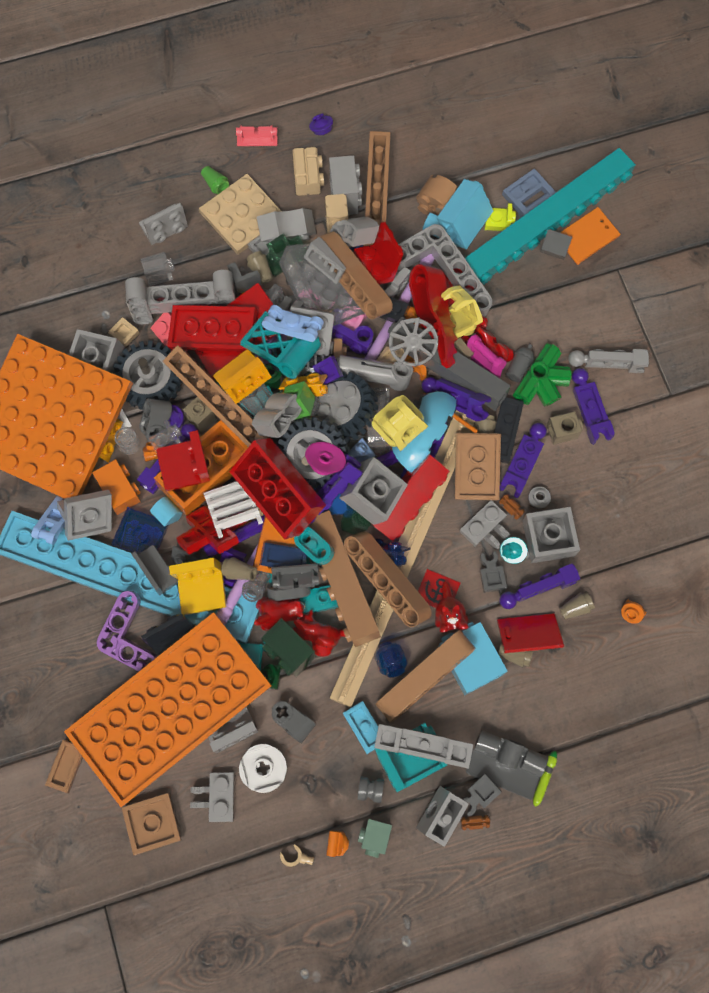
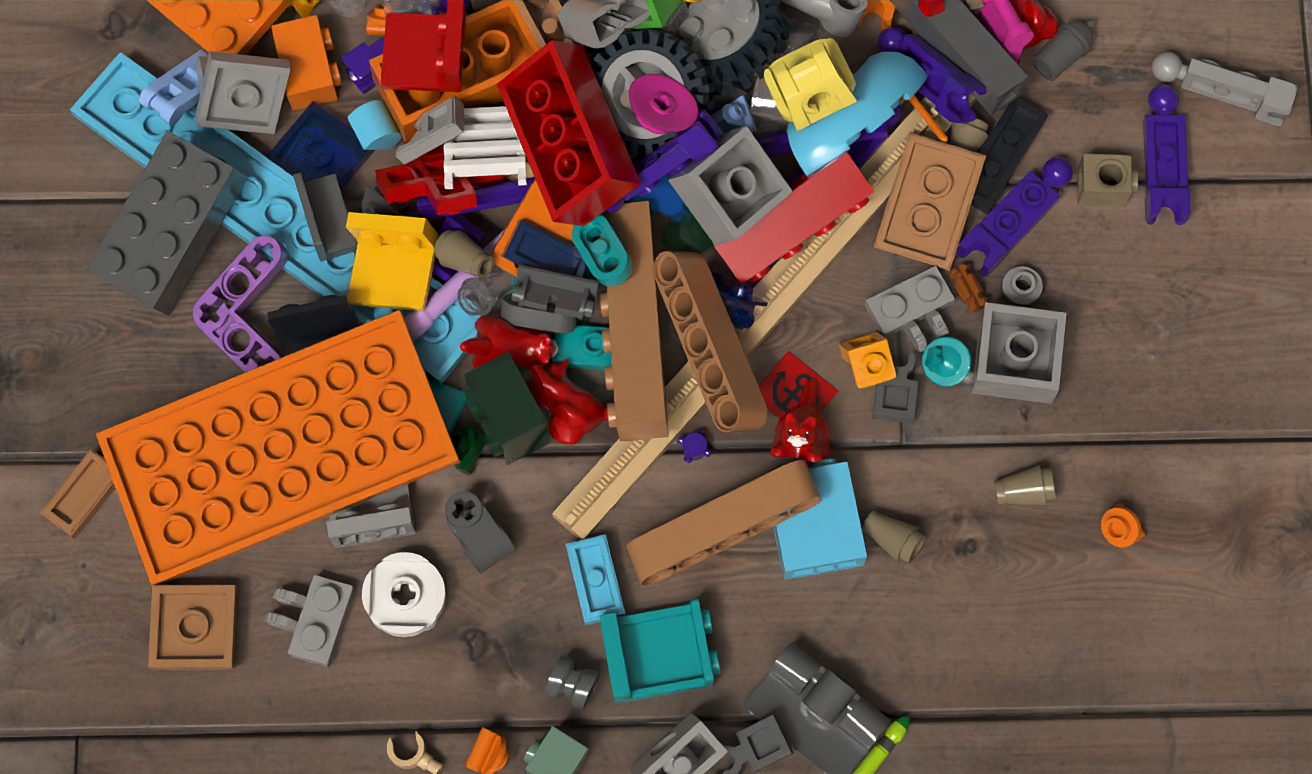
camera: 20 degrees right, 0 degrees up
(67, 600) = (167, 223): none -> dark grey brick
(202, 506) = (434, 129): none -> light grey tile
(391, 659) = (675, 480): clear blue head -> none
(394, 635) = (694, 446): none -> dark purple piece
(424, 745) = (681, 633): light grey slope -> none
(473, 561) = (868, 359): none -> light orange bracket
(530, 633) = (929, 507): red container -> none
(550, 378) = (1096, 97): green piece -> none
(563, 577) = (1022, 433): dark purple plate -> none

